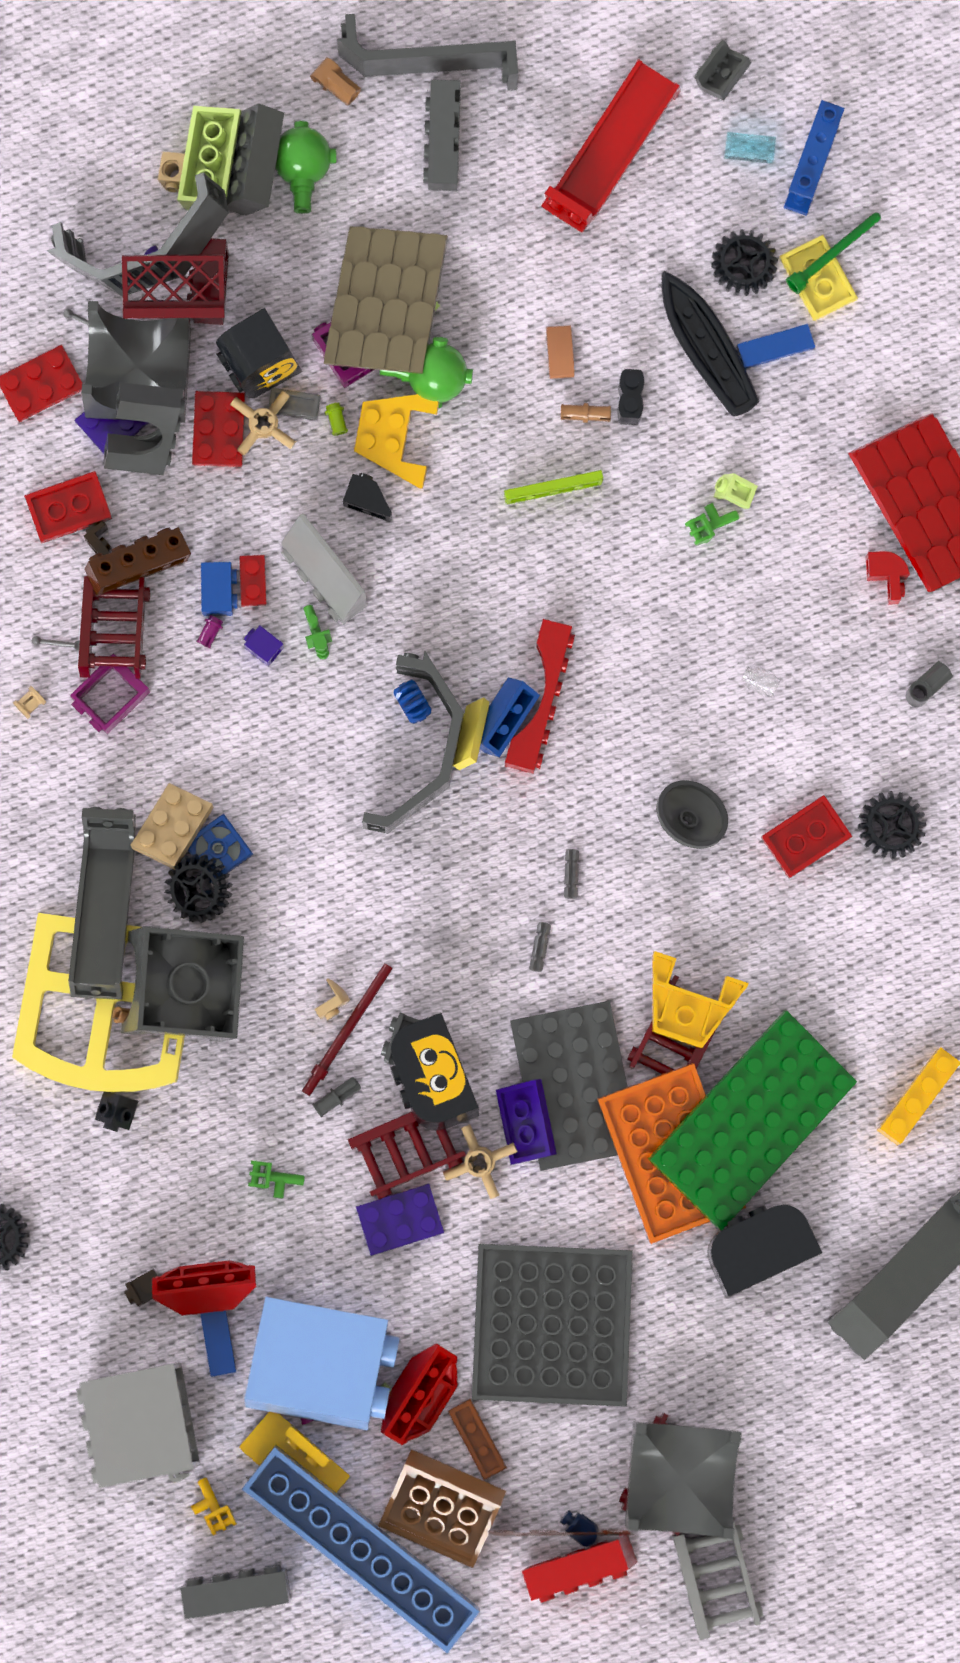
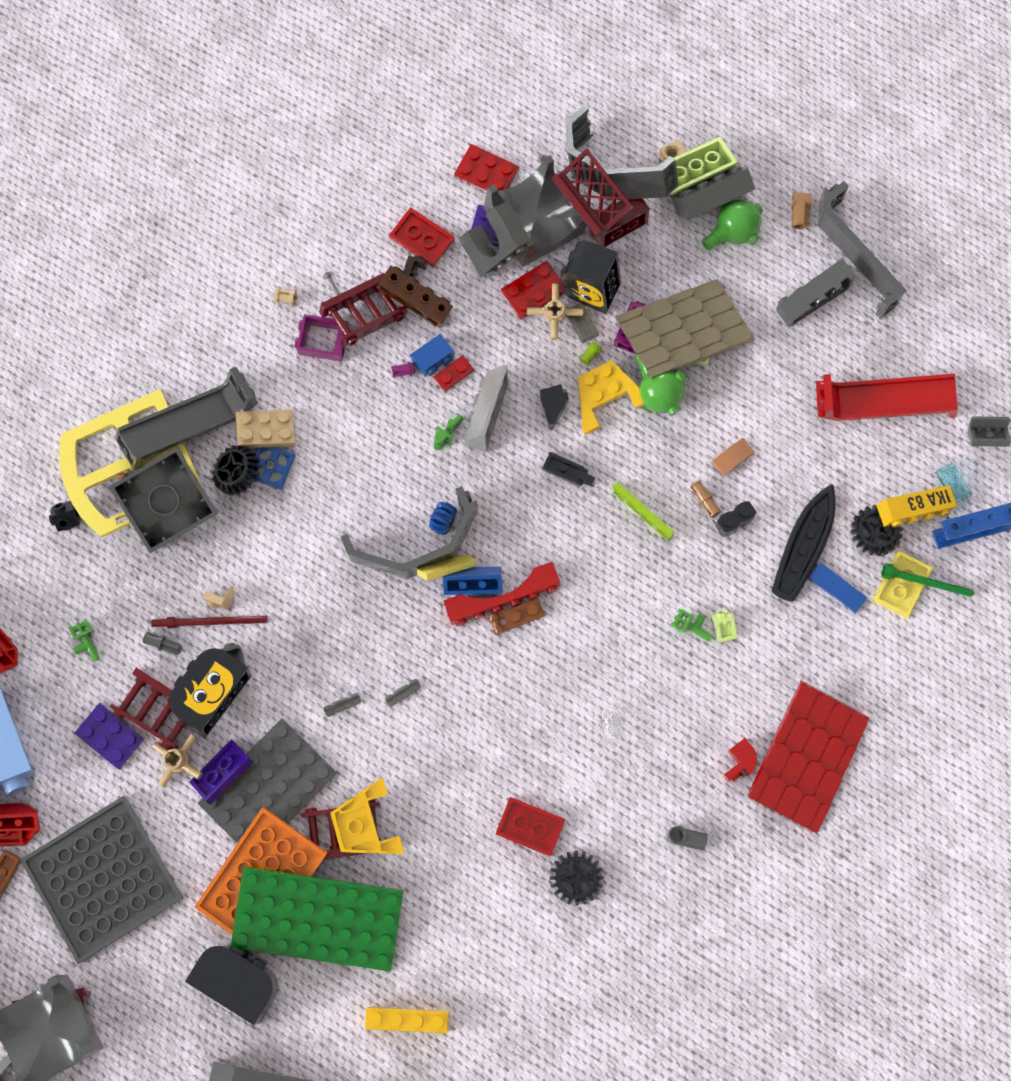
camera: 65 degrees right, 5 degrees down
(263, 645) = (416, 406): dark purple brick -> none
(450, 534) = (567, 470): none -> black hinge
(573, 697) = (517, 616): none -> dark orange plate
(696, 805) = (501, 738): dark grey dish -> none
(750, 203) = (916, 506): none -> yellow brick

